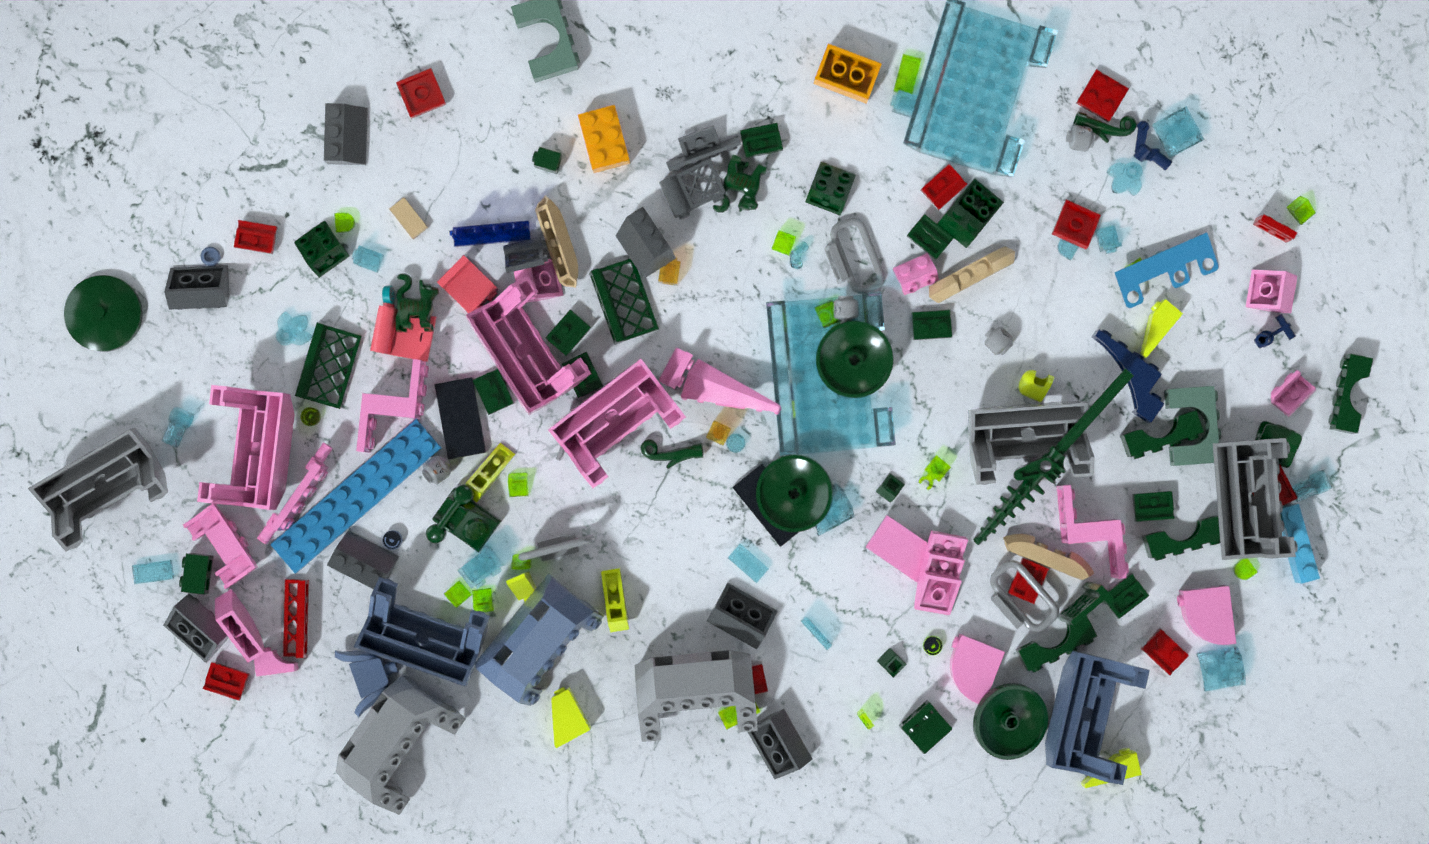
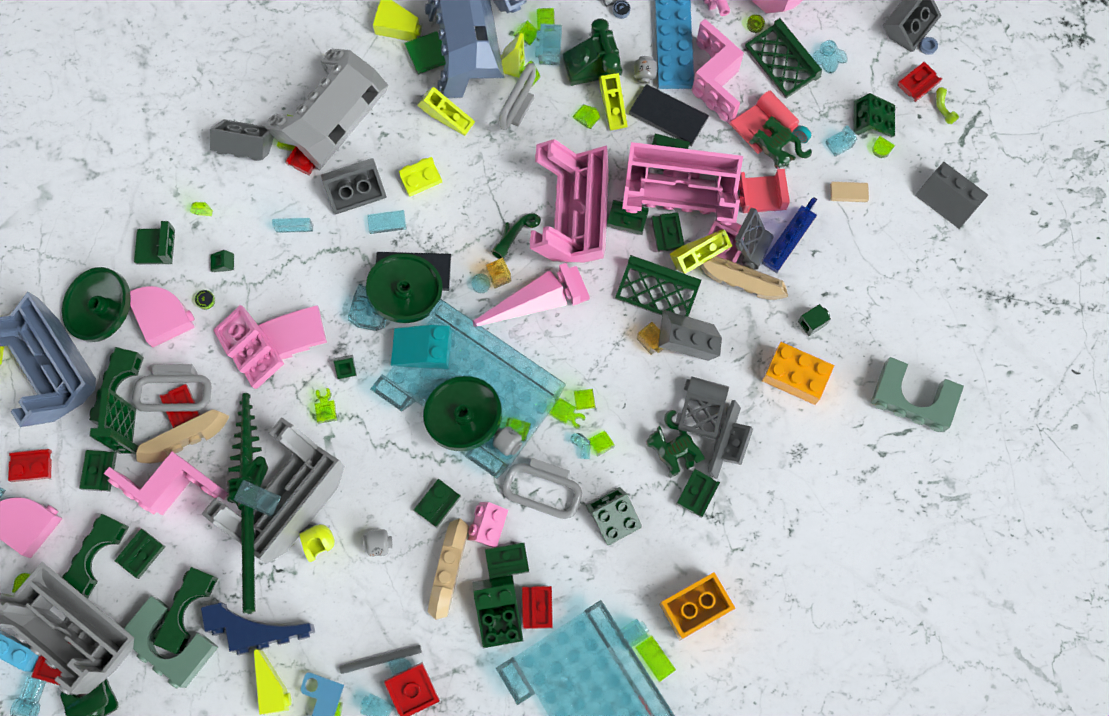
camera: 135 degrees right, 15 degrees down
(269, 187) = (951, 117): none -> lime piece
(421, 93) = (942, 272): red plate -> none
(569, 292) = (700, 251): none -> neon yellow slope
(572, 668) = (426, 52): none -> green tile
(688, 569) = (420, 176): none -> neon yellow bracket
(762, 282) = (584, 399): none -> clear neon green slope
(783, 289) = (564, 412): none -> clear neon green plate
(829, 438) = (422, 346): none -> teal slope
(1047, 446) = (257, 498): none -> clear light blue tile
(1074, 267) = (380, 659): none -> dark grey bar

